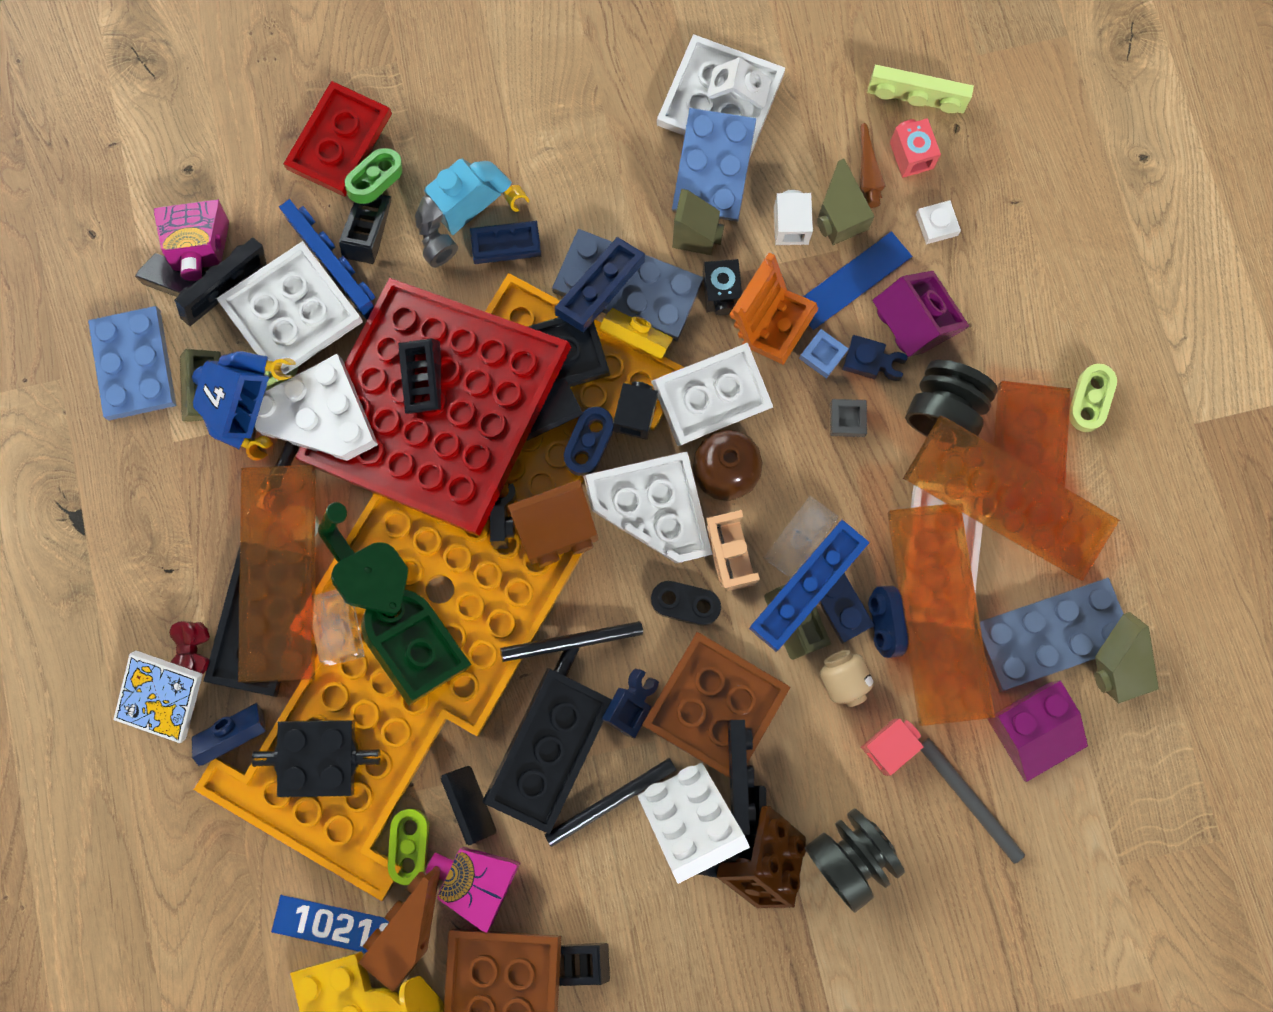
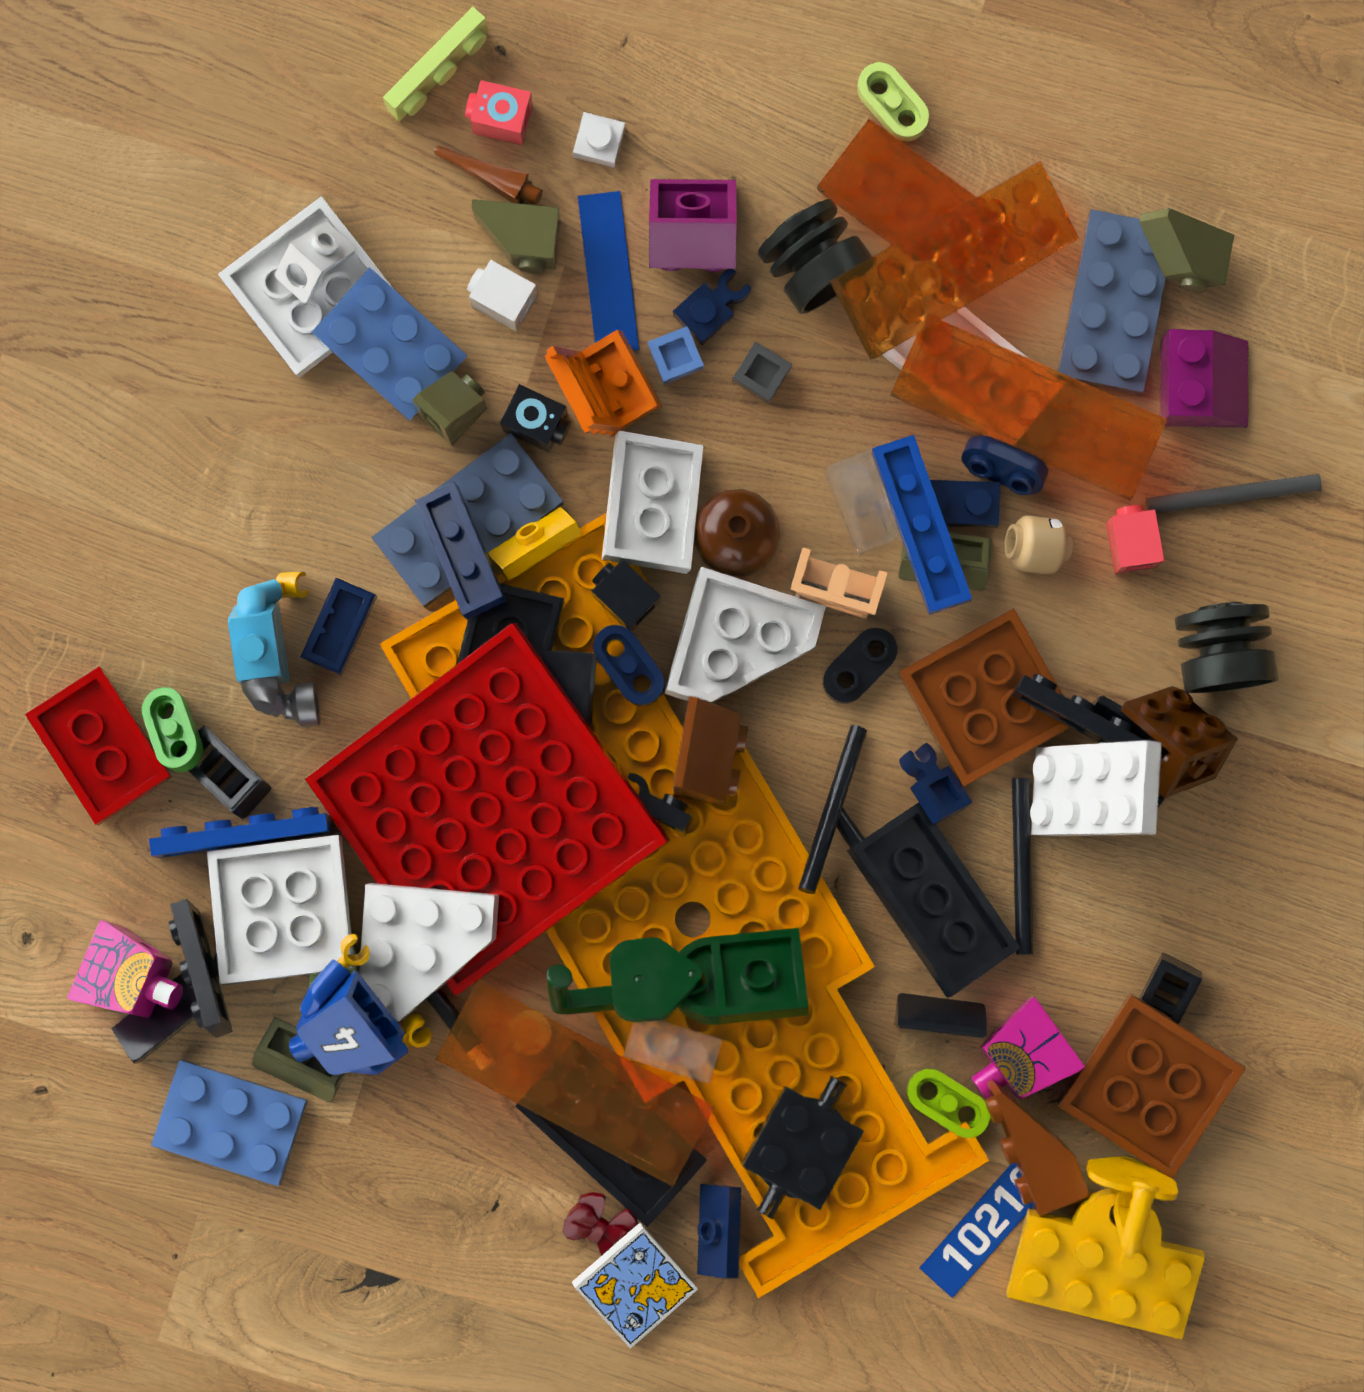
camera: 60 degrees left, 5 degrees up
(407, 354) = (460, 790): black slope -> none

